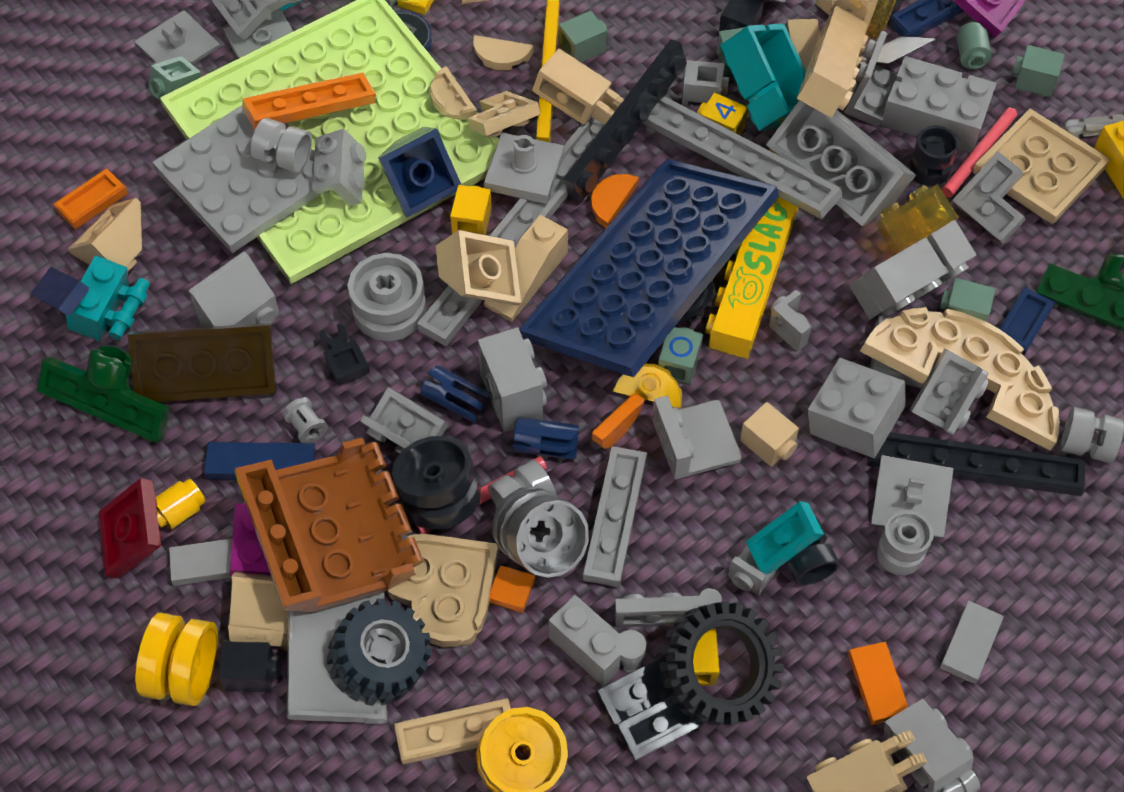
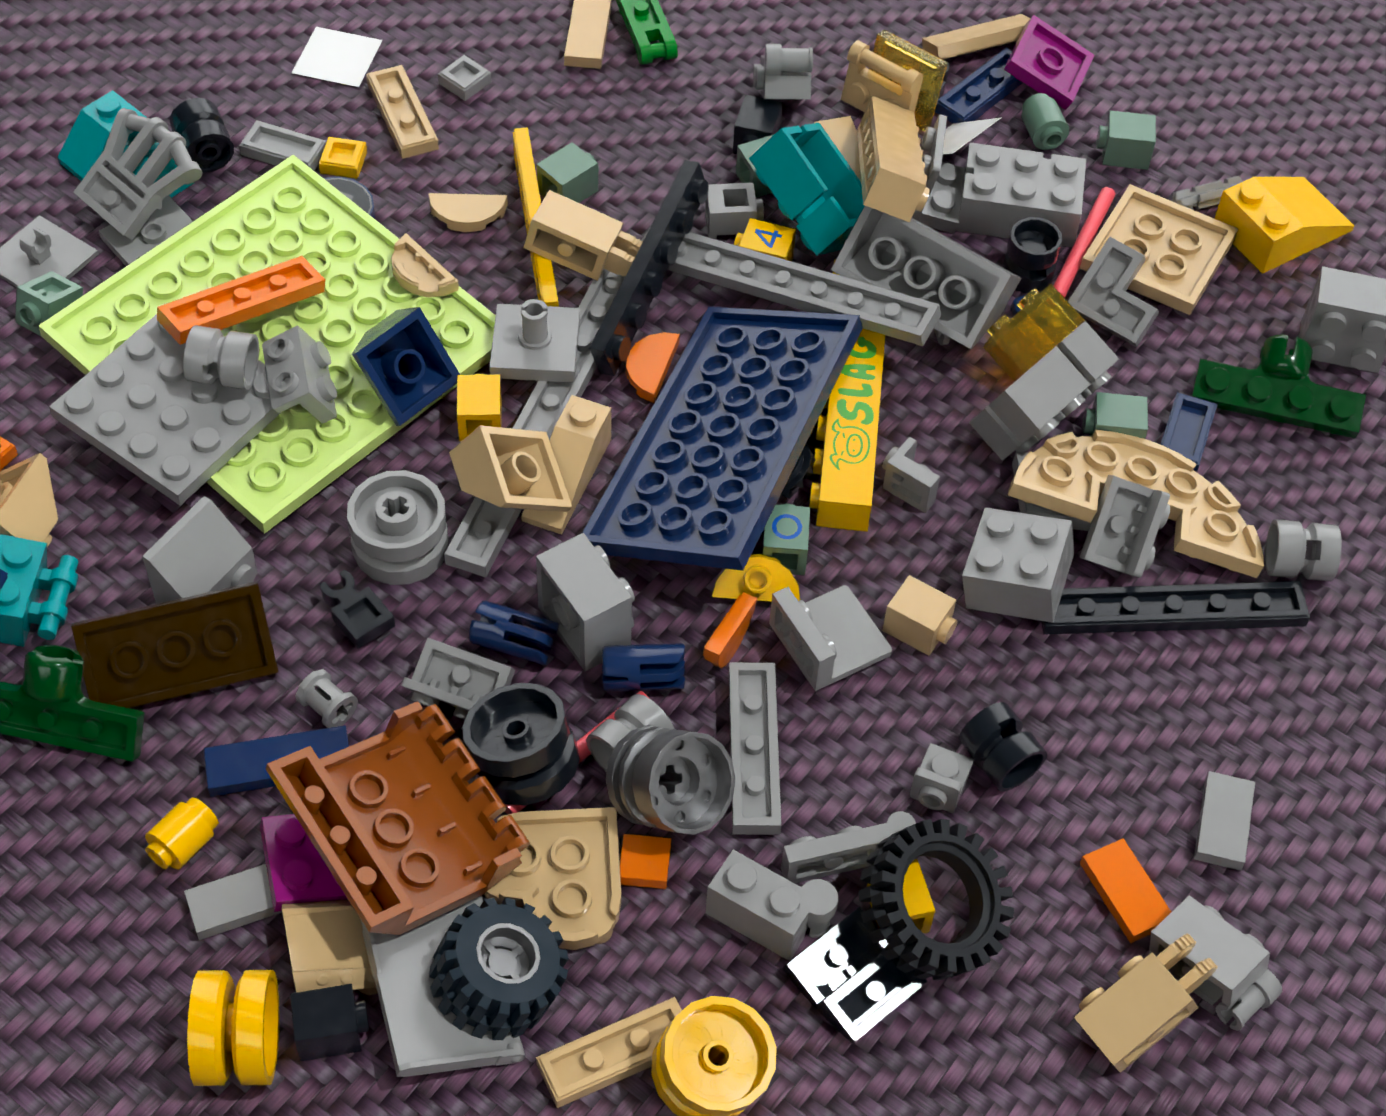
camera: 15 degrees left, 5 degrees down
(129, 528) = (127, 874): dark red plate -> none
(502, 112) = (492, 279): tan plate -> none
(784, 537) = (975, 732): teal plate -> none
(904, 542) = (1117, 715): light grey wheel -> none
(915, 488) = (1109, 660): light grey piece -> none

